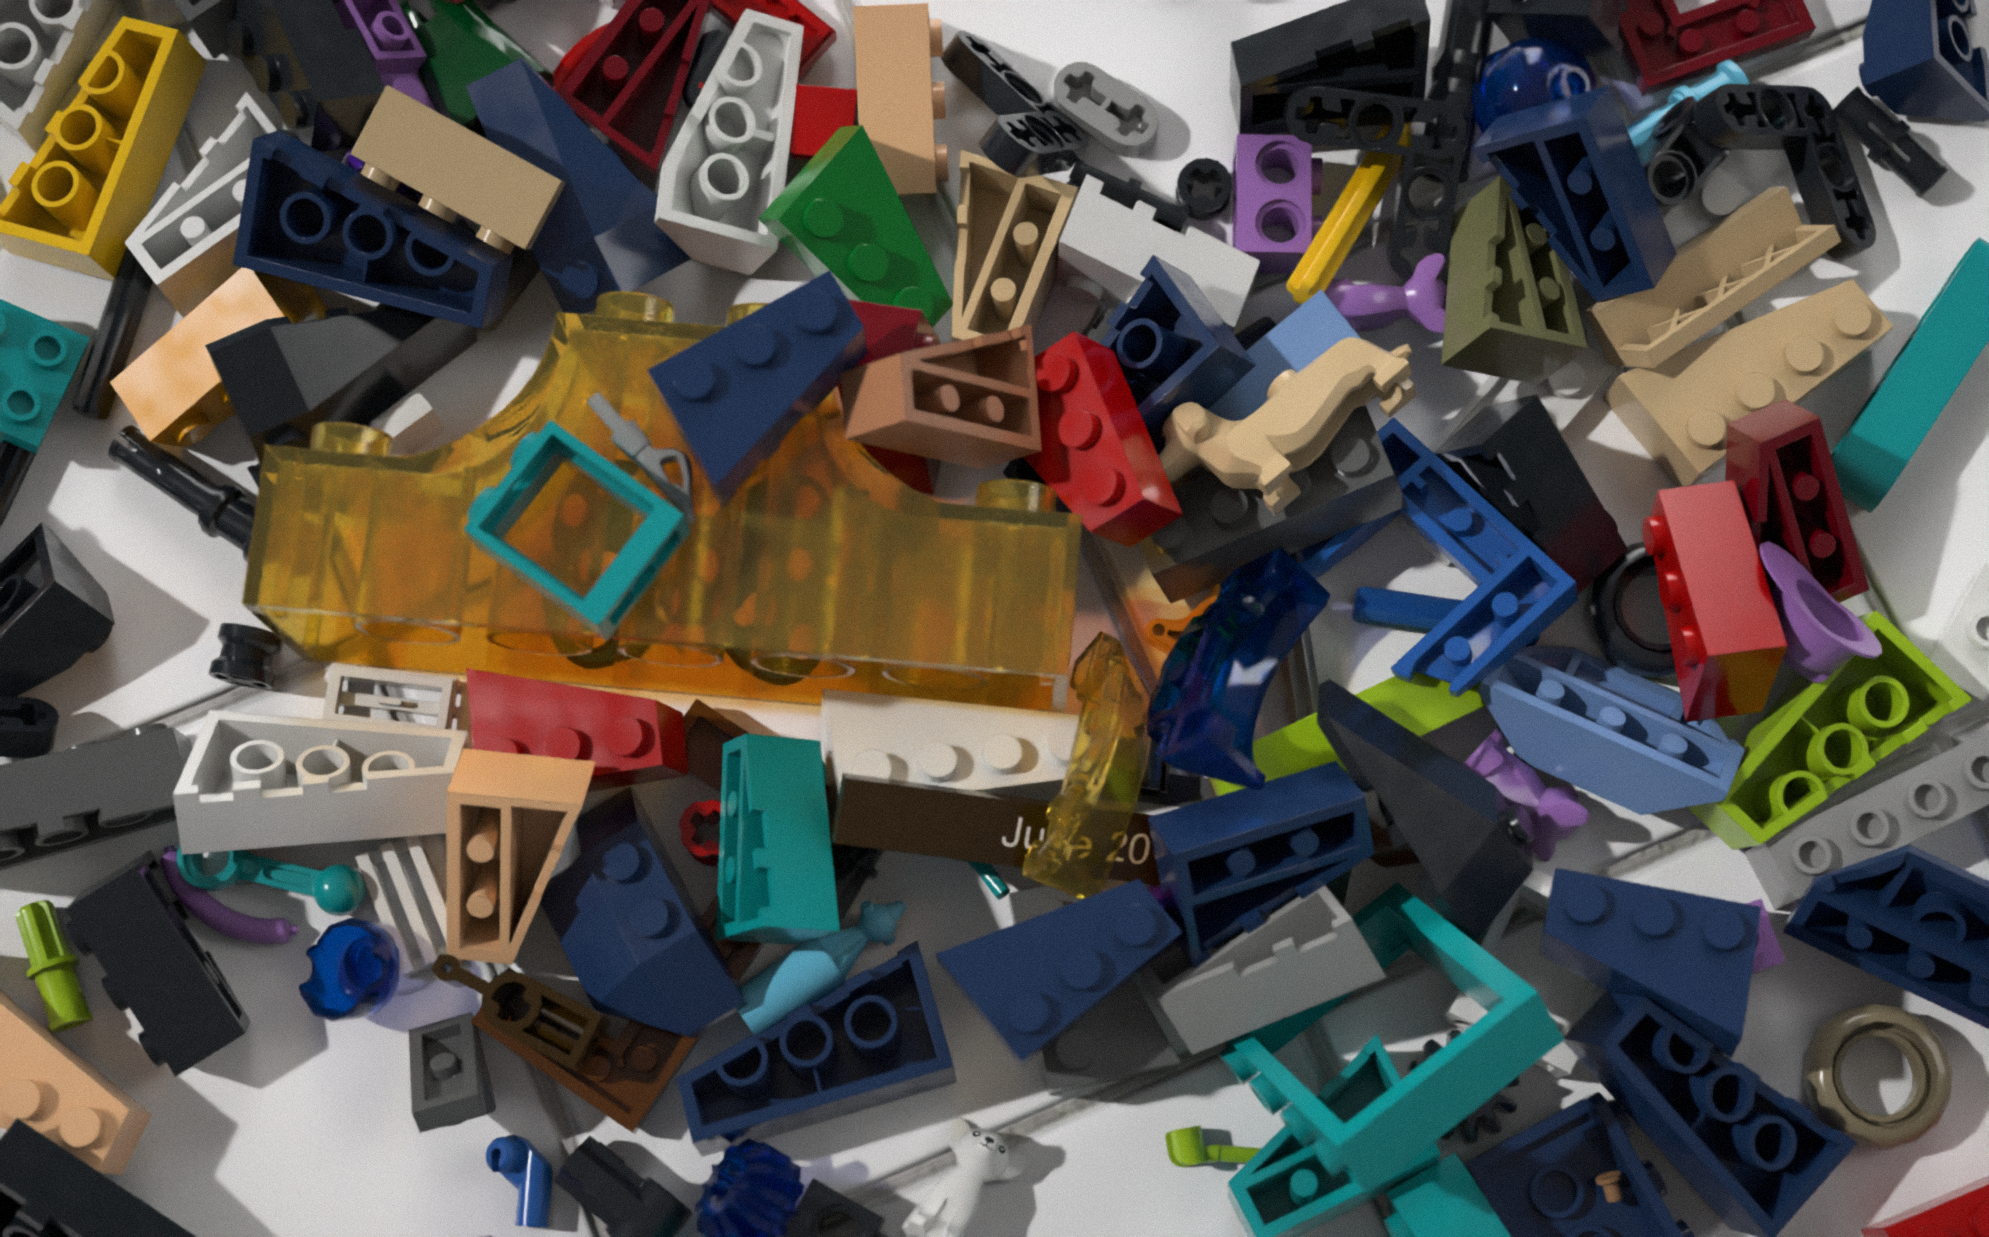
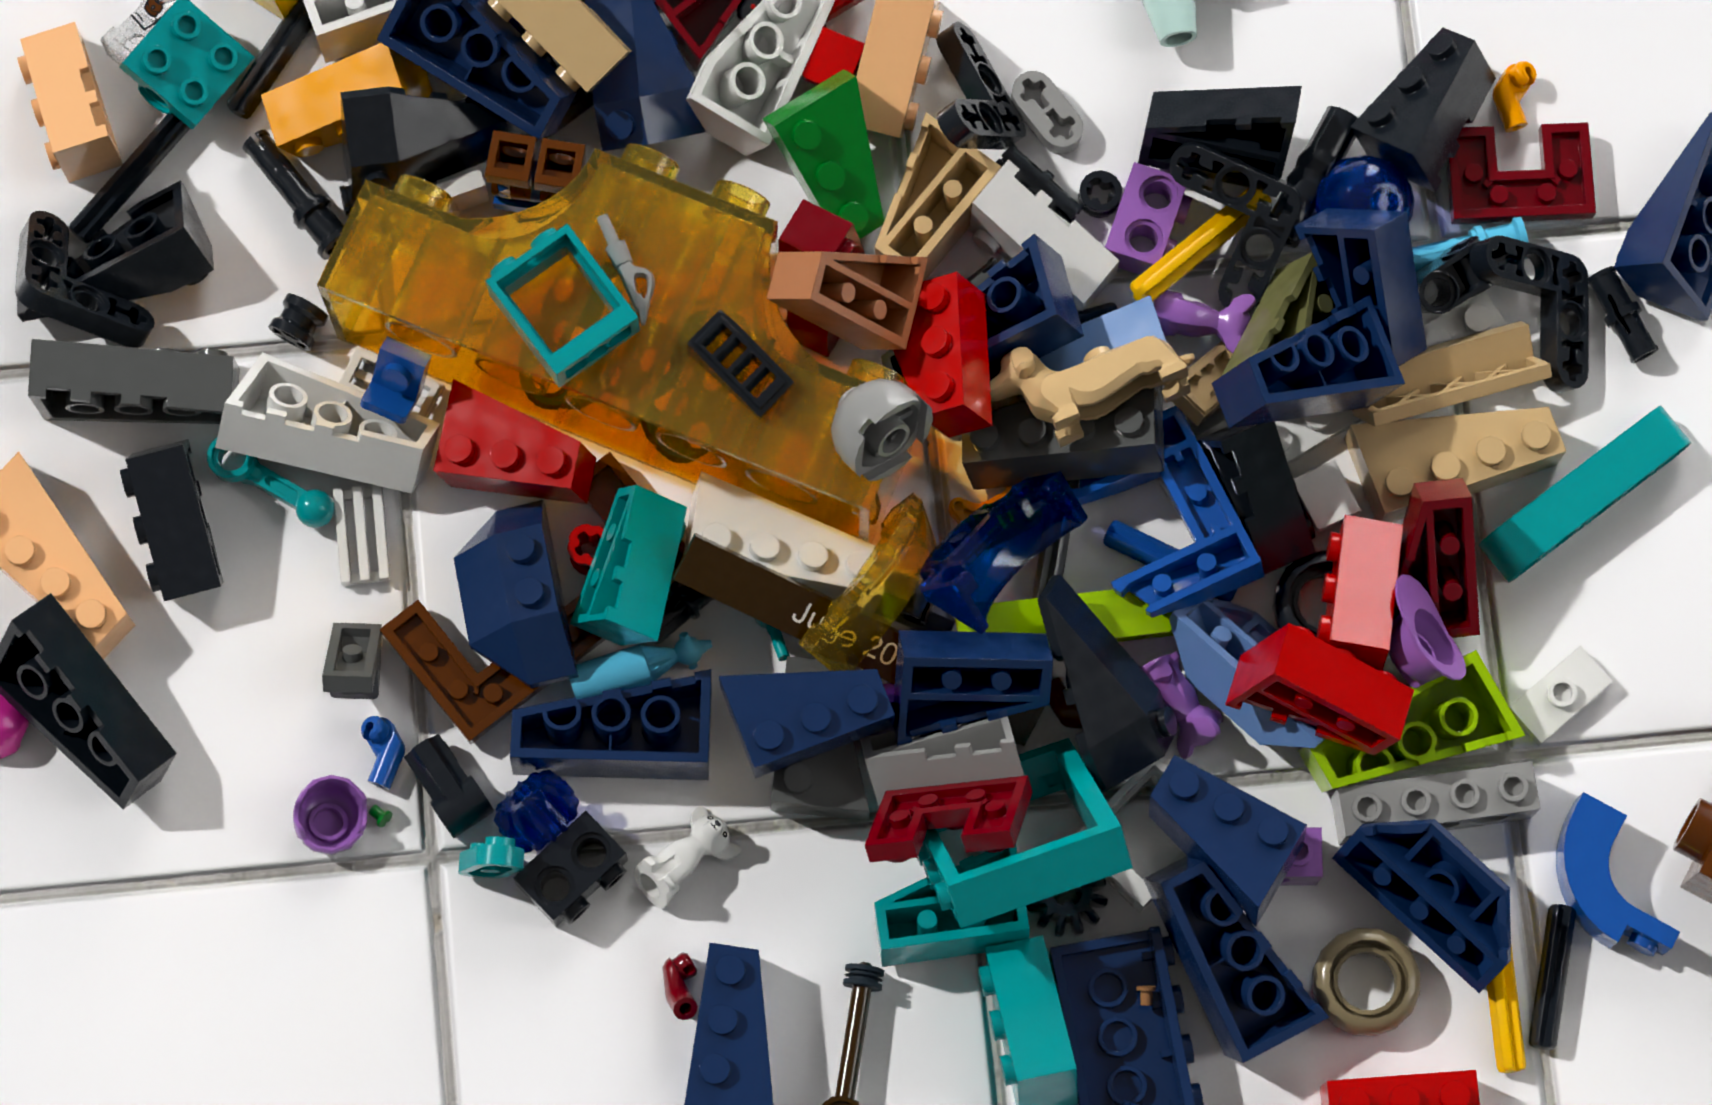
camera: 15 degrees right, 0 degrees up
(52, 966) = (97, 499): lime axle -> none
(219, 916) = (223, 500): medium lavender piece -> none
(351, 971) = (307, 567): clear blue hair -> none
(392, 694) = (396, 380): none -> blue bracket
(480, 378) = (527, 178): none -> reddish brown hips
(503, 843) = (441, 510): light nougat wedge -> none
(545, 1005) = (437, 632): dark brown piece -> none
(758, 379) = (720, 238): dark blue wedge -> none
(848, 515) = (737, 337): none -> black slope
(1045, 561) = (878, 426): none -> light grey cylinder
(1188, 1148) = (857, 879): lime hand -> none
(1346, 1013) = (984, 809): none -> dark red plate
(1430, 378) = (1202, 399): none -> tan plate
(1570, 318) = (1316, 372): none -> dark blue wedge
(1618, 474) = (1326, 495): none -> white panel
(1713, 719) = (1322, 687): none -> red wedge

